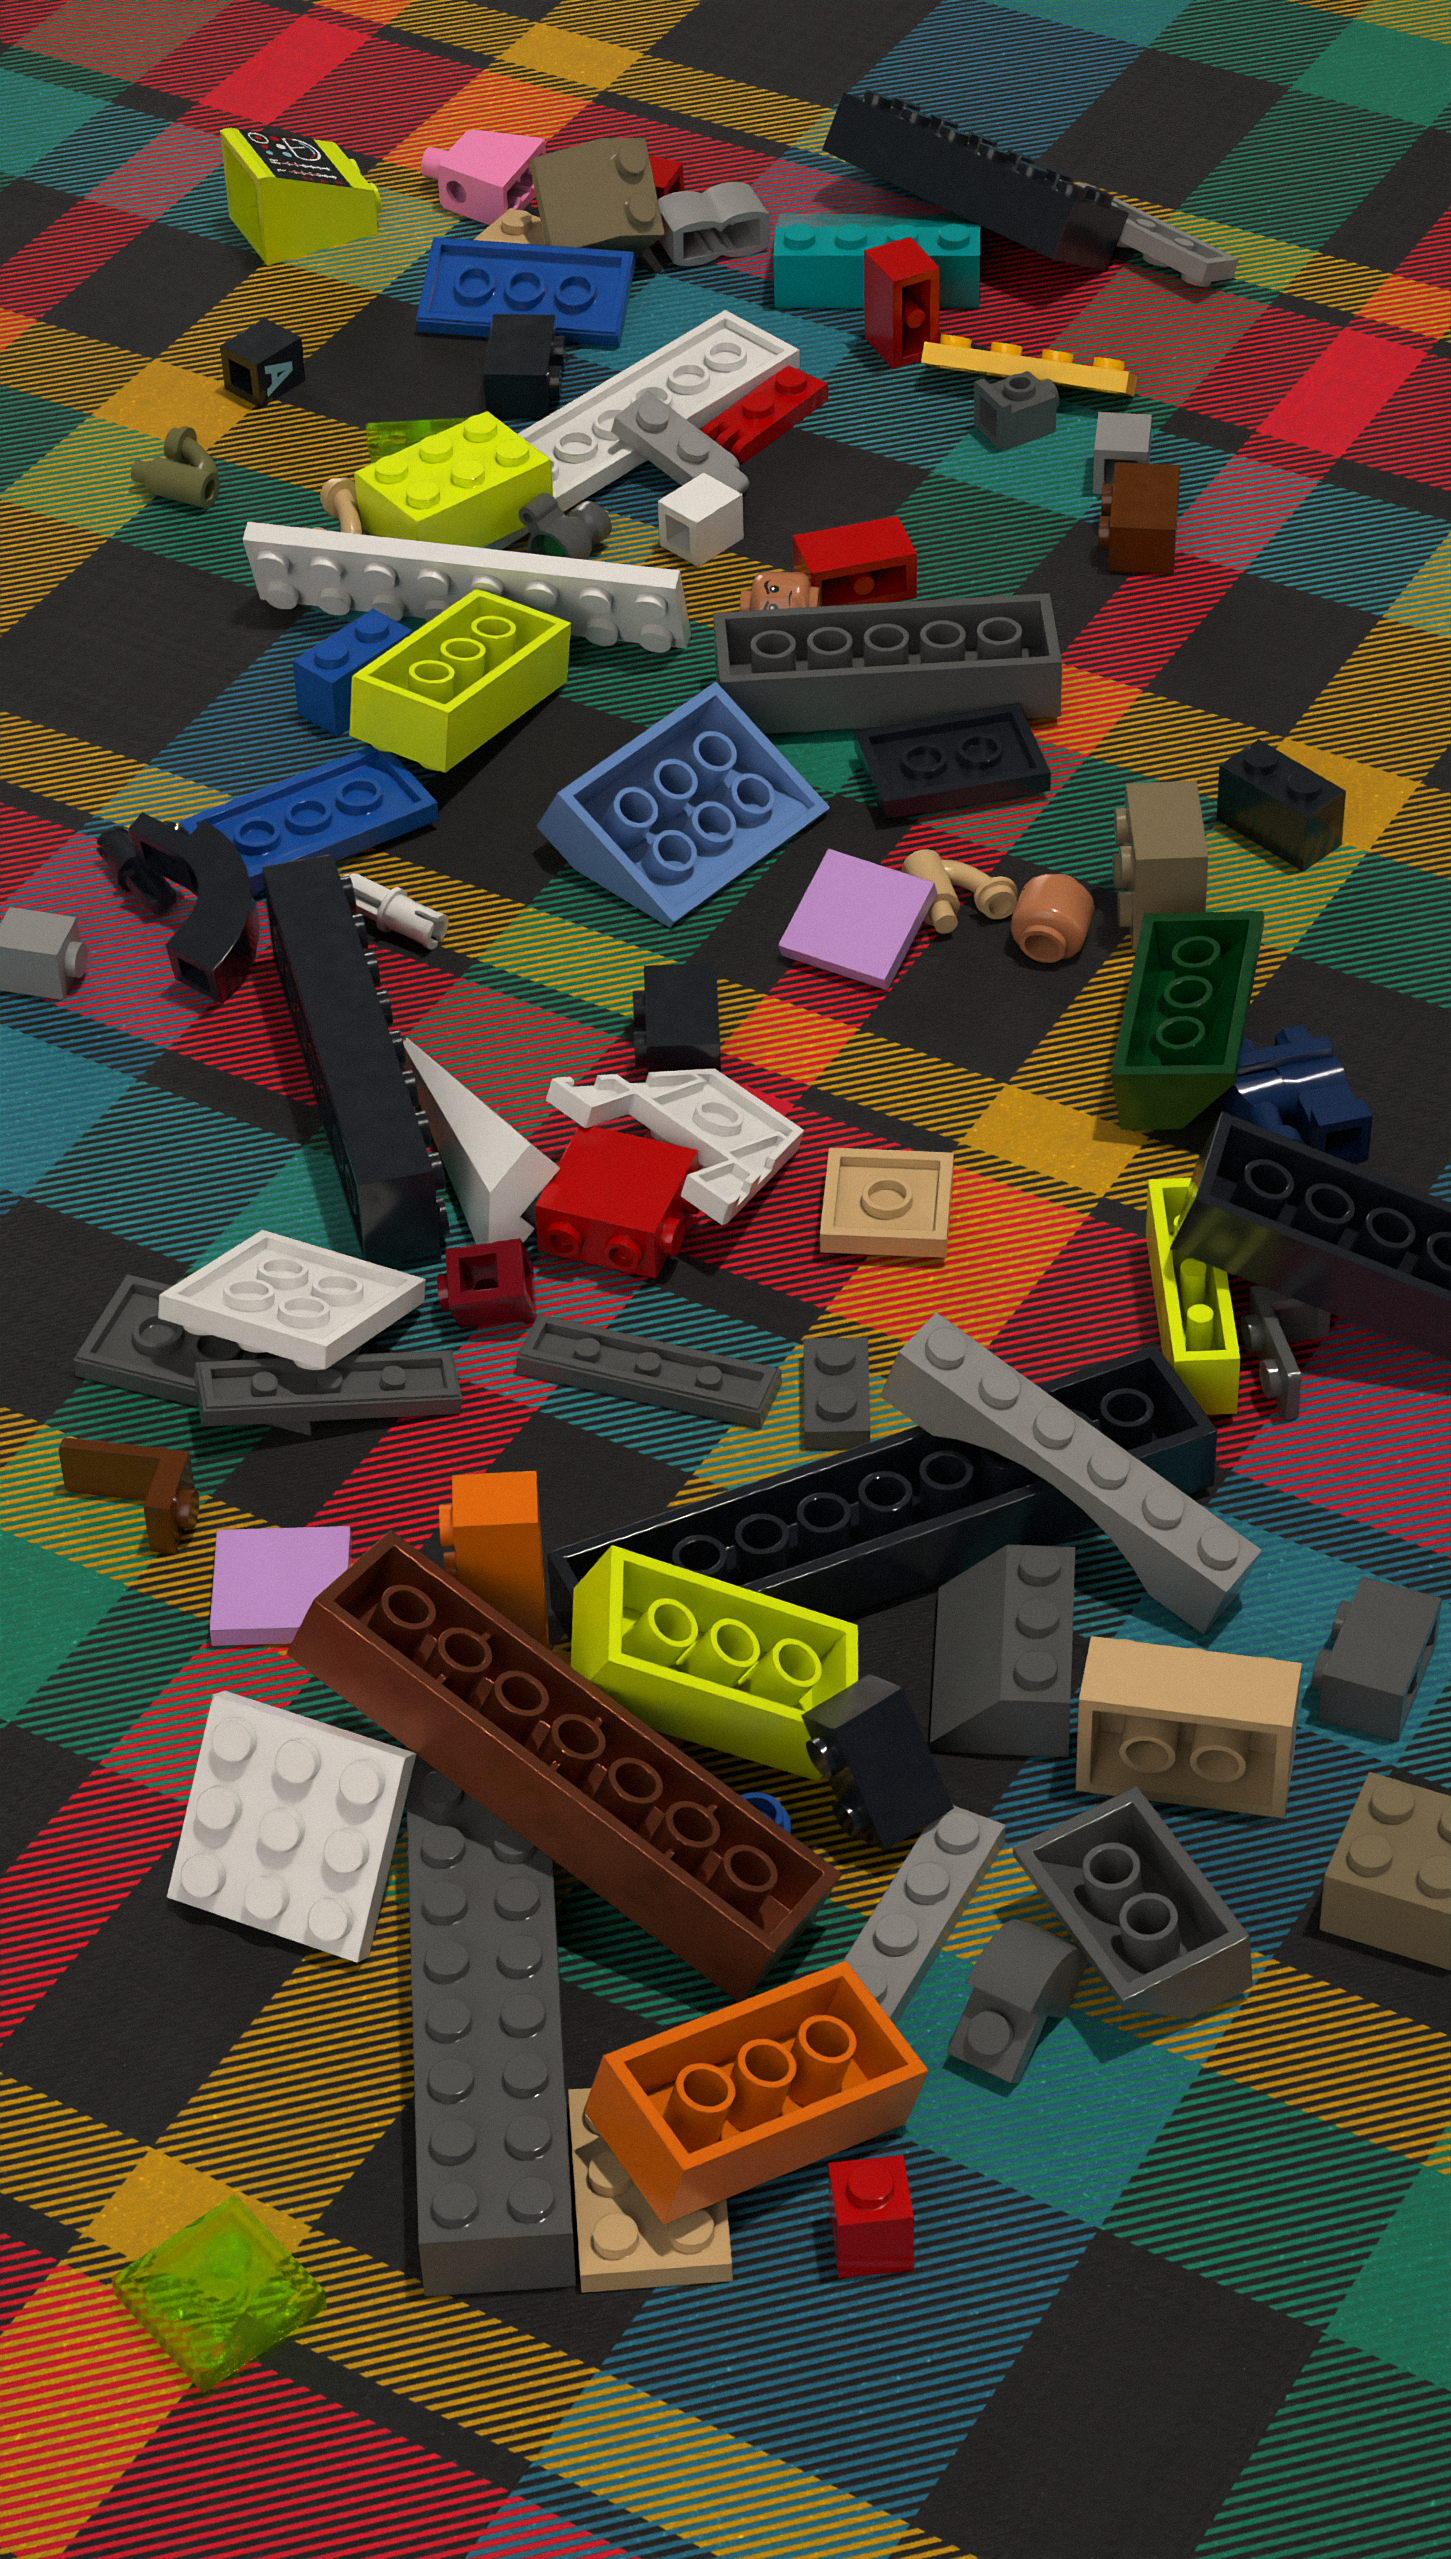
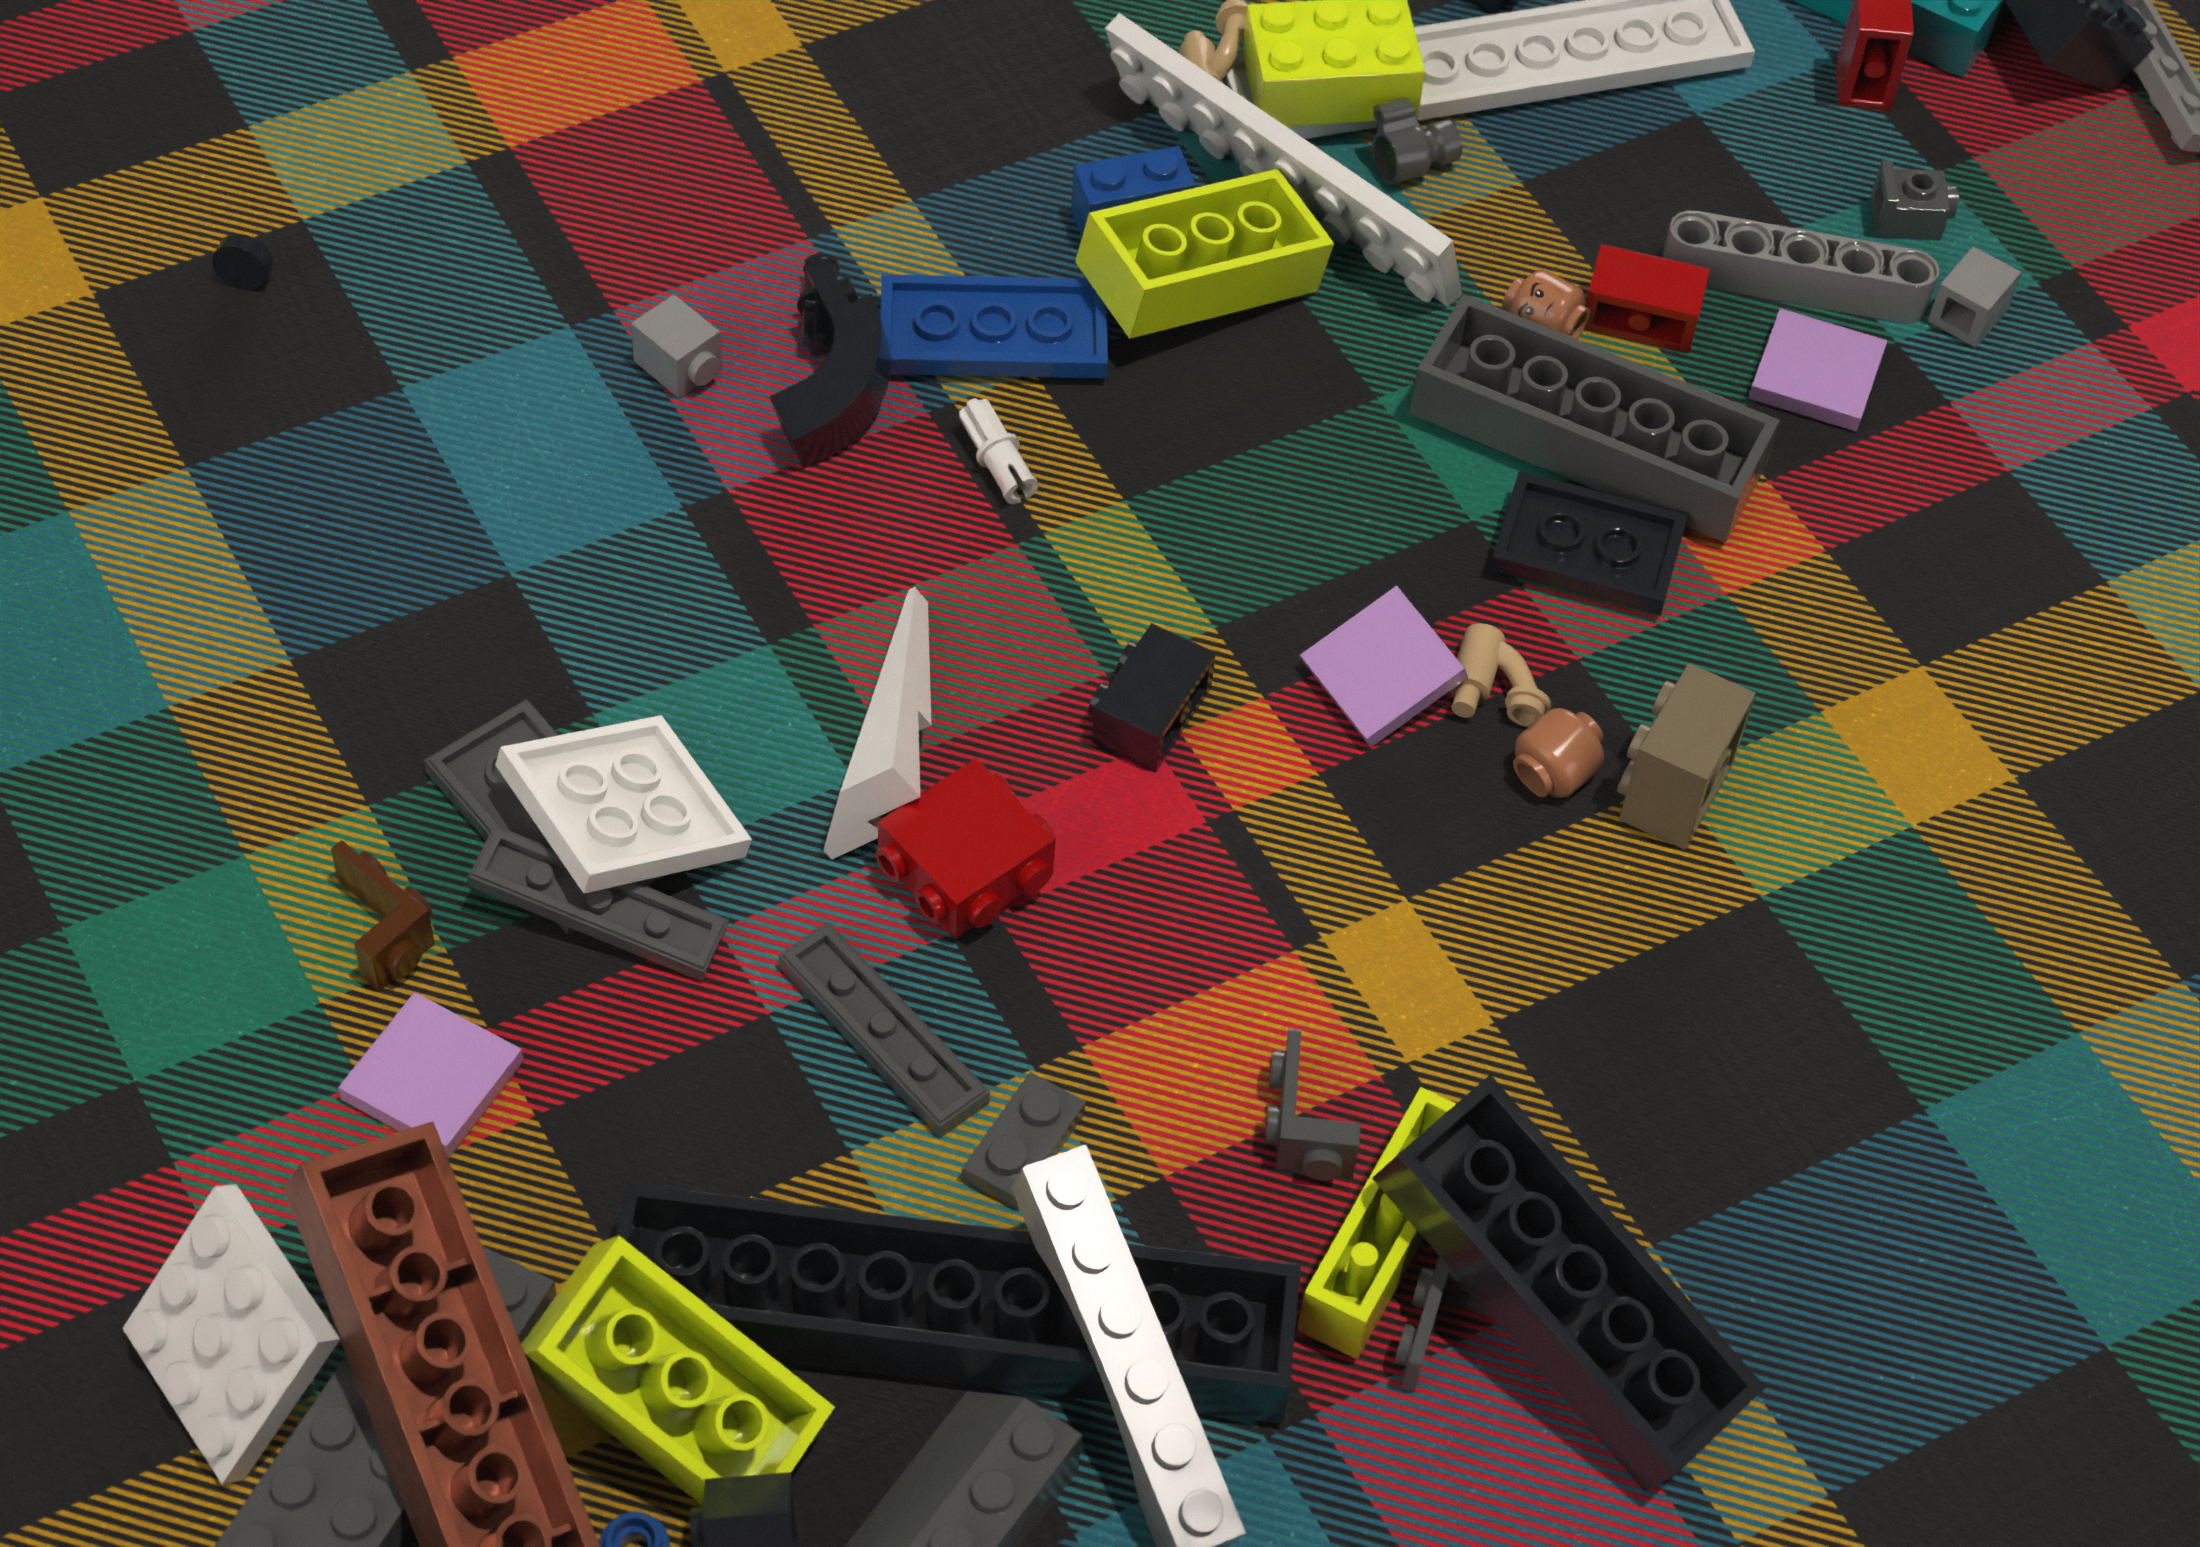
camera: 25 degrees right, 10 degrees up
(355, 1064) = (835, 597): black brick -> none
(488, 1284) = (823, 872): dark red brick -> none
(498, 1545) = (536, 1191): orange brick -> none
(676, 443) = (1574, 105): light grey hinge -> none
(682, 809) = (1313, 476): medium blue slope -> none
(700, 519) = (1544, 184): white brick -> none
(735, 1133) = (1099, 807): white wing -> none
(767, 412) = (1684, 100): red hinge -> none
(887, 1202) = (1202, 971): tan plate -> none
(971, 487) = (1805, 266): none -> light grey beam
(1006, 360) = (1972, 177): yellow plate -> none
(1036, 559) = (1817, 369): none -> lavender tile
(1066, 1281) = (1304, 1144): none -> dark grey bracket
(1140, 518) = (1944, 373): reddish brown brick -> none
(1184, 1015) = (1588, 923): dark green slope -> none
(1280, 805) = (1851, 742): black brick -> none
(1304, 1084) = (1641, 1040): dark blue hips -> none

